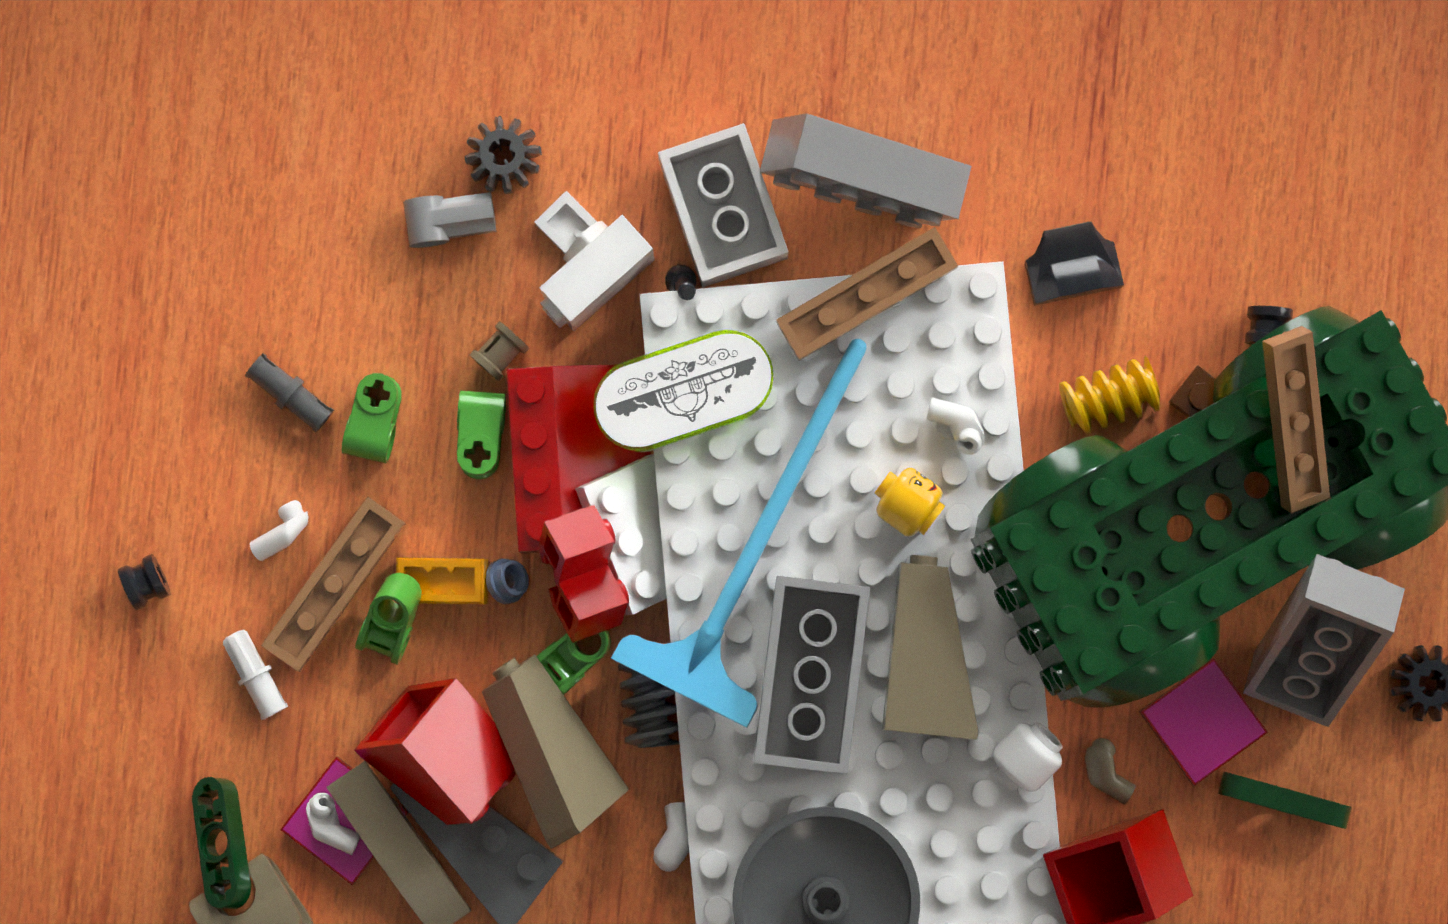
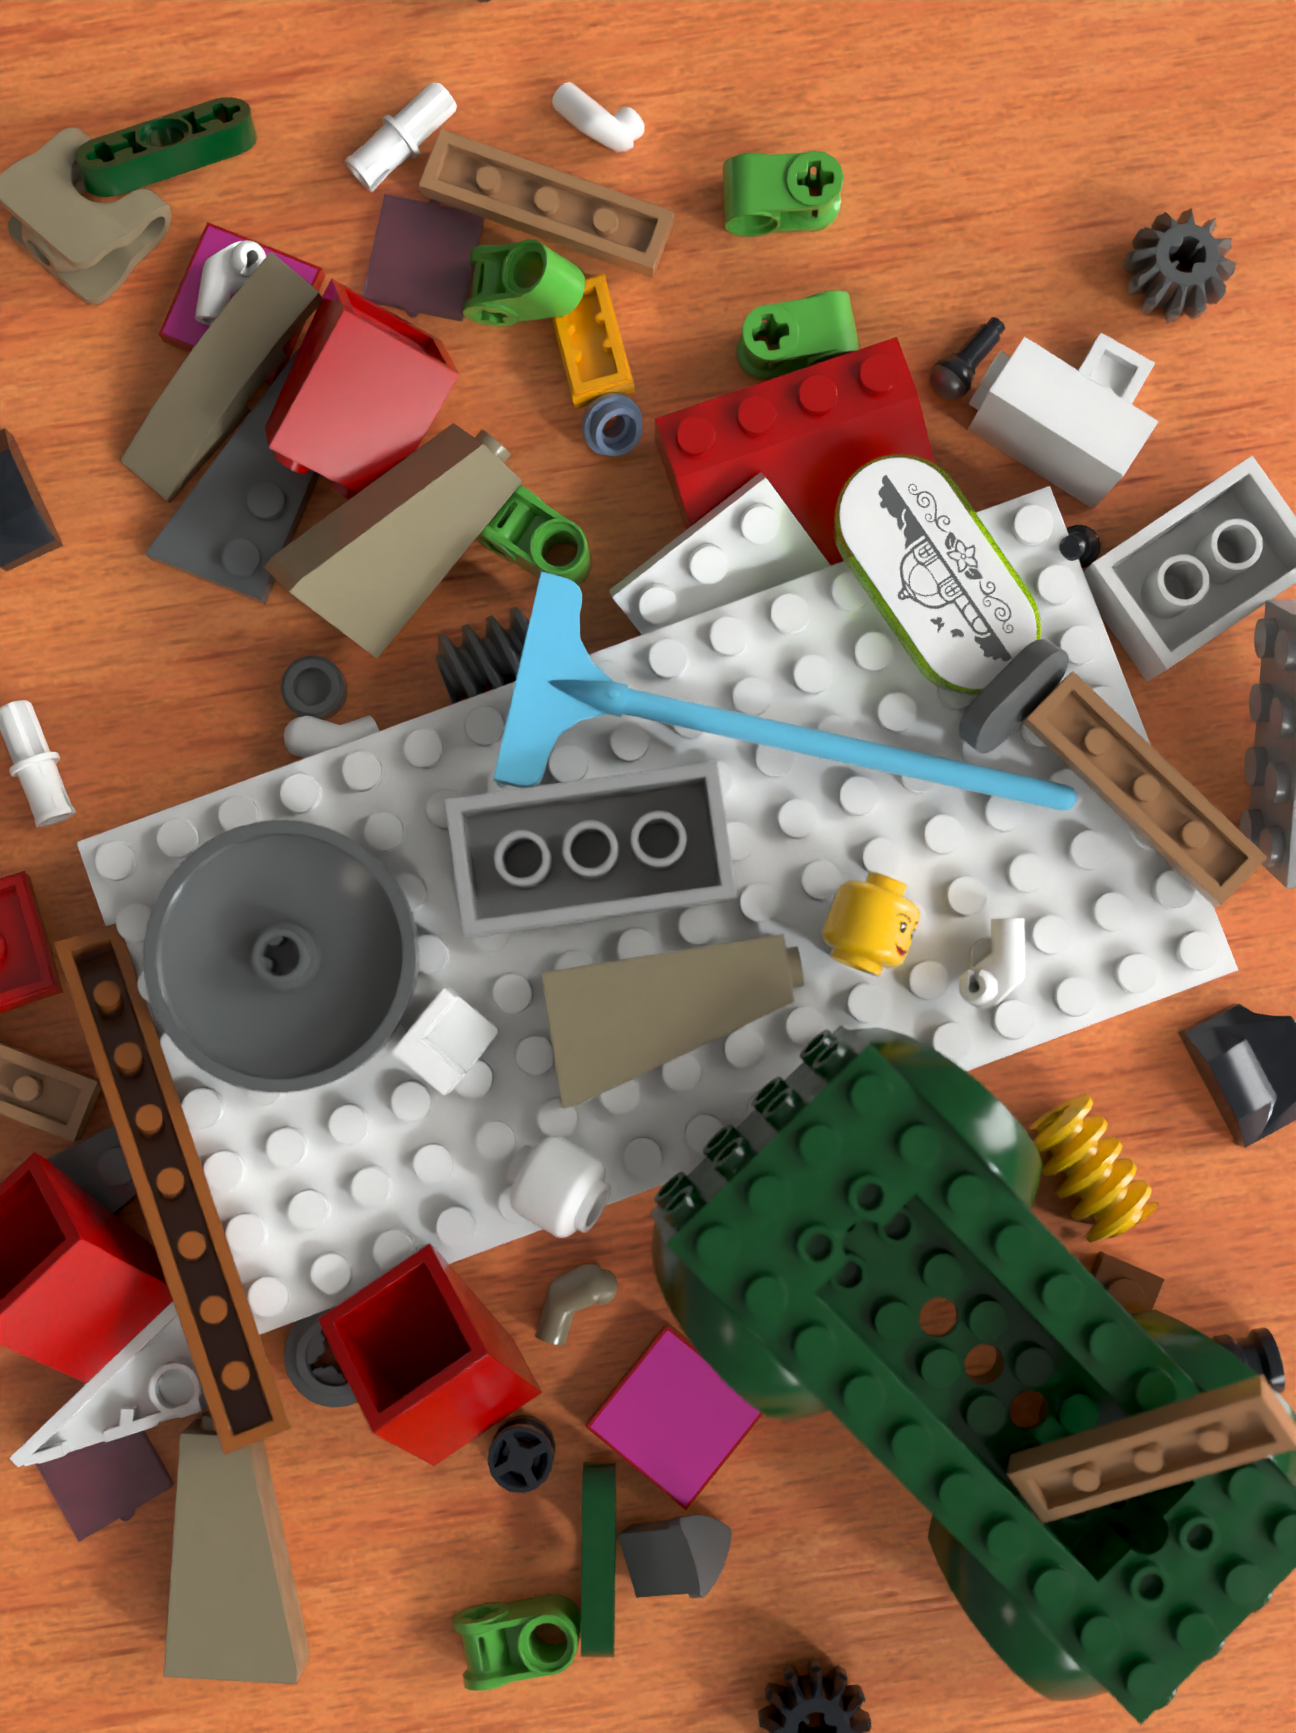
camera: 80 degrees right, 0 degrees up
(289, 392) = (783, 77): dark grey pin -> none
(344, 683) = (422, 257): none -> piece
(436, 220) = (1067, 205): light grey piece -> none
(499, 351) = (917, 331): dark tan bush -> none
(534, 331) = (954, 374): none -> black piece
(585, 589) = (628, 517): red brick -> none
(634, 840) = (314, 687): none -> dark grey tile
(781, 363) = (1013, 695): none -> dark grey tile
(911, 806) = (446, 1041): none -> white panel
(1209, 833) = (517, 1465): none -> black wheel
(1295, 749) = (675, 1555): none -> dark grey tile
(1324, 640) = (842, 1573): light grey brick -> none
(1324, 874) = (504, 1644): none -> bright green piece

